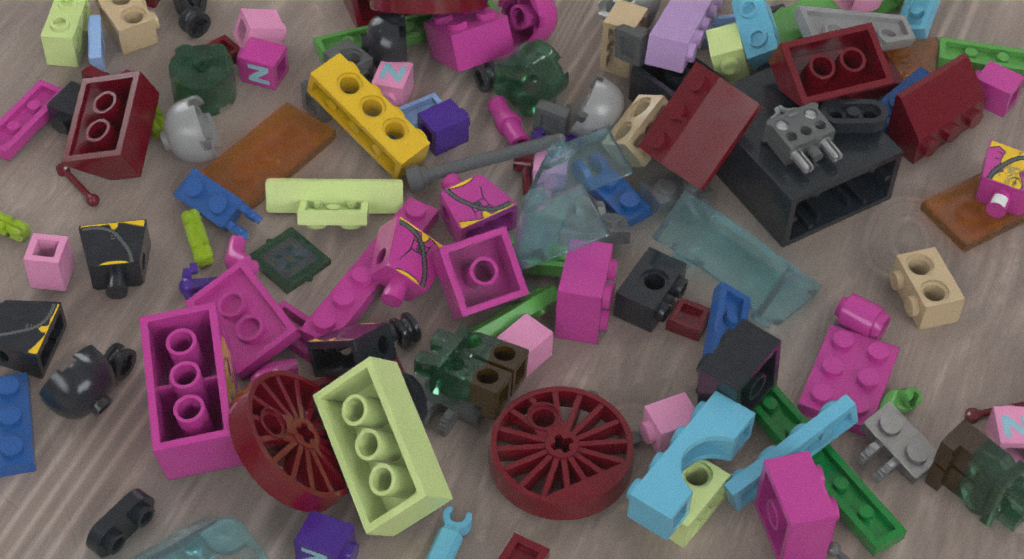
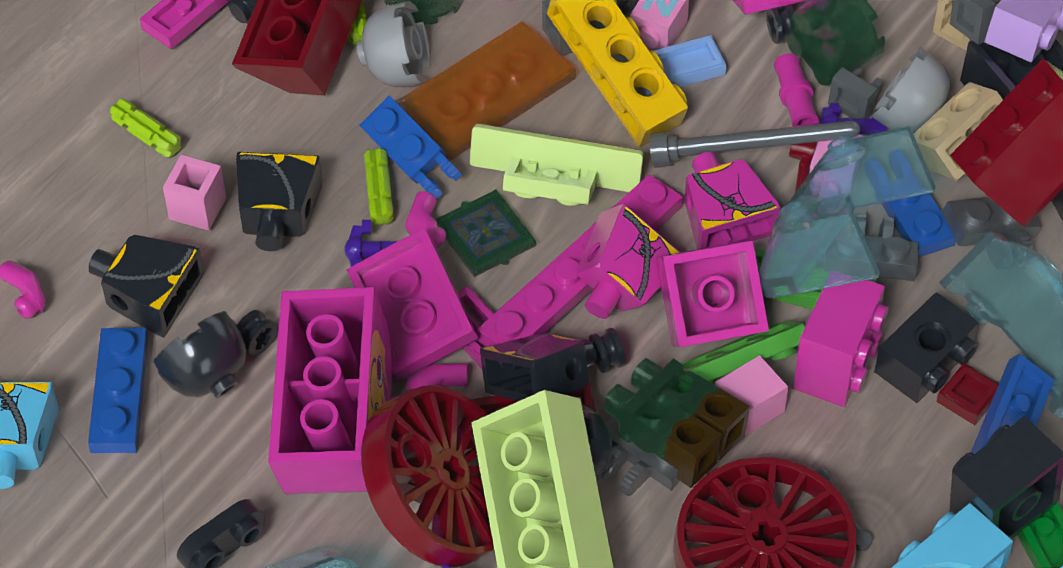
camera: 15 degrees right, 5 degrees up
(91, 199) = (262, 116): dark red hinge -> none
(444, 126) = (712, 85): dark purple brick -> none
(663, 419) = (904, 522): bright pink brick -> none

